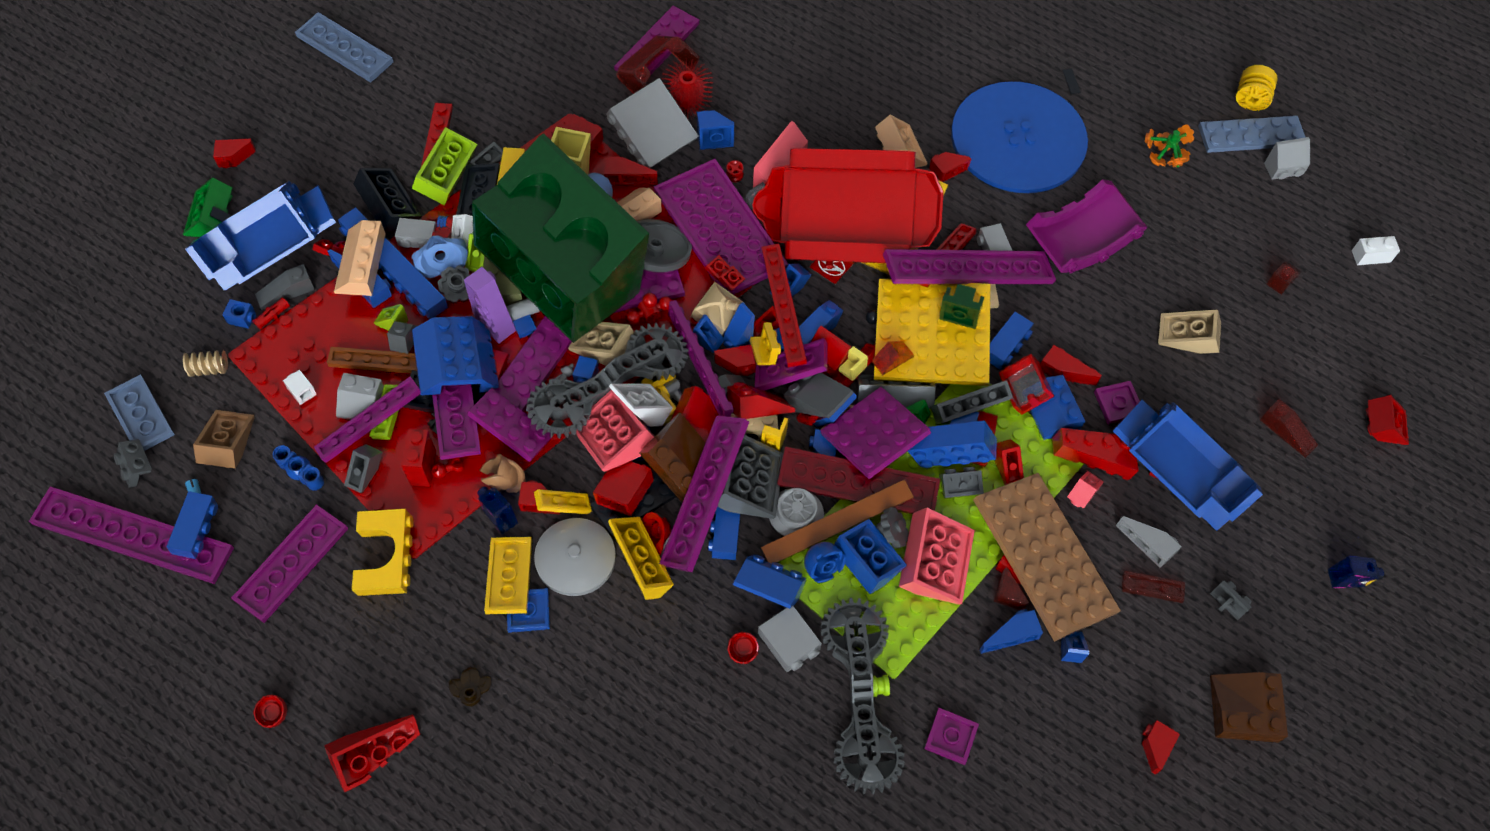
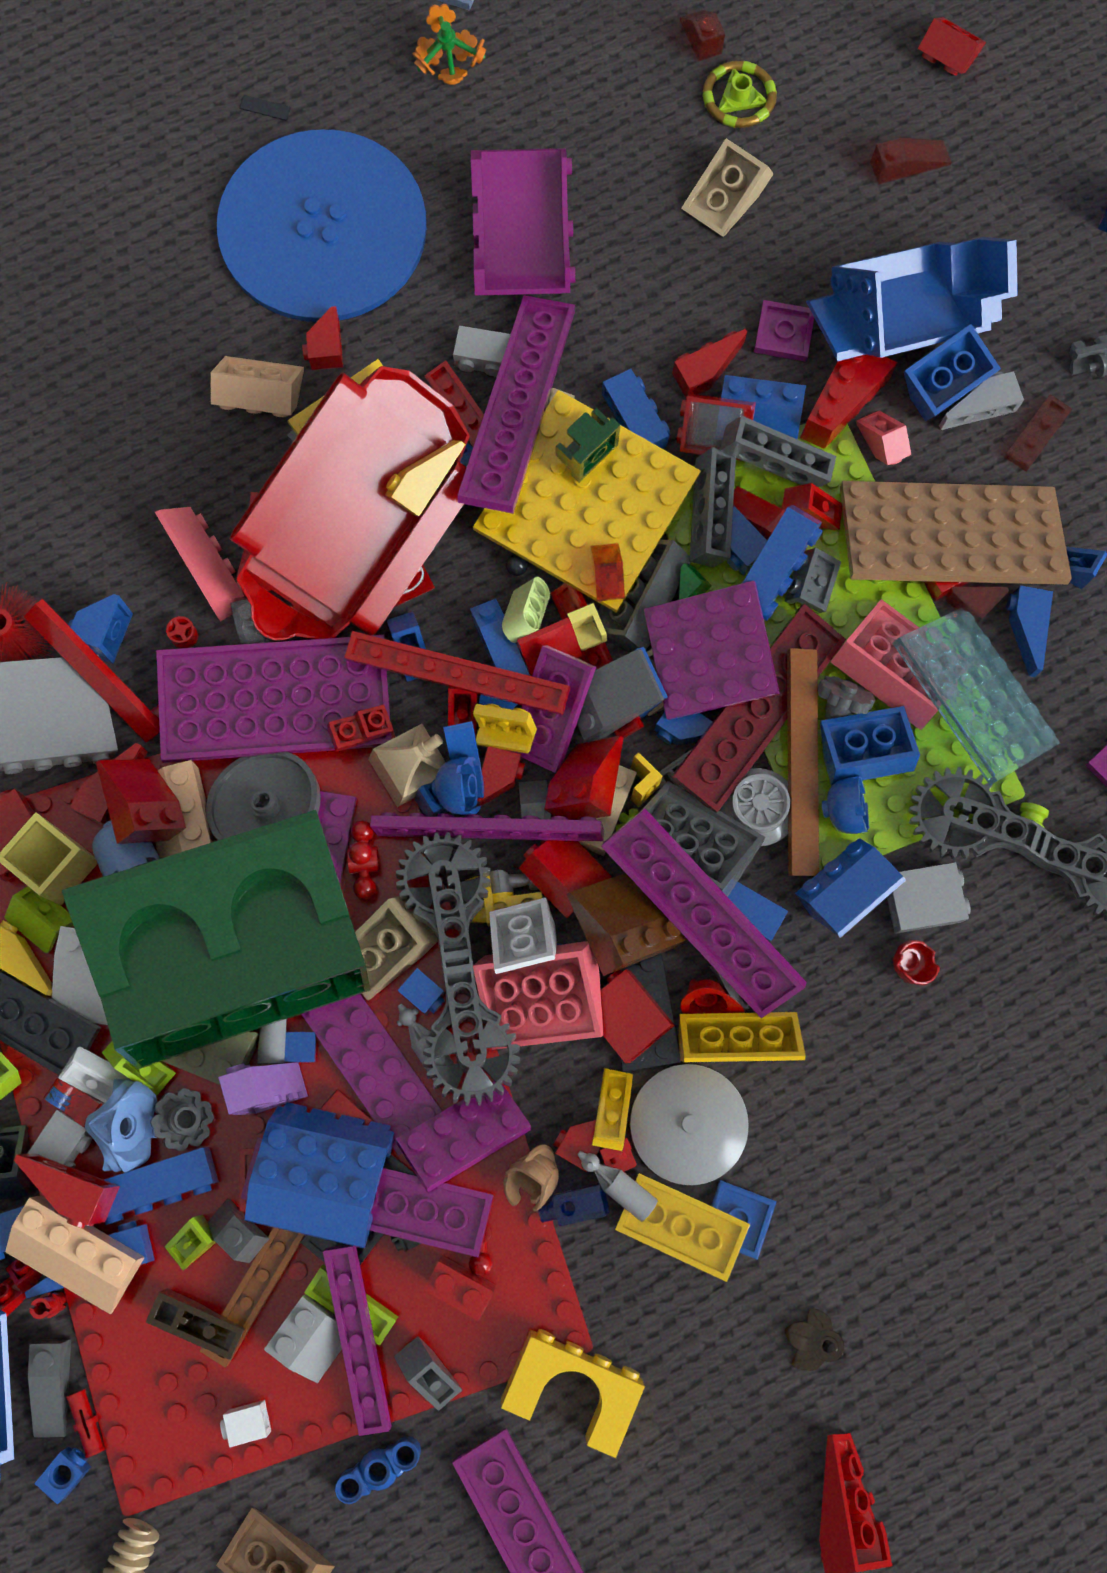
camera: 65 degrees left, 15 degrees up
(327, 264) = (48, 1305): none -> red pin
(345, 333) = (195, 1323): none -> dark brown slope
(392, 239) = (69, 1190): none -> red slope
(516, 524) = (620, 1187): none -> light grey wheel
(536, 521) = (618, 1159): none -> red bracket
(624, 180) = (139, 801): none -> red slope
(687, 131) = (93, 670): none -> red tile
(716, 334) = (459, 786): none -> blue cylinder
(846, 327) = (526, 609): none -> yellowish green beam
(880, 230) = (419, 481): none -> yellow slope
(941, 610) = (976, 694): none -> clear light blue plate
(1027, 420) = (777, 452): none -> dark grey brick
(1152, 504) = (949, 372): none -> blue slope
(1260, 314) = (740, 94): none -> lime piece

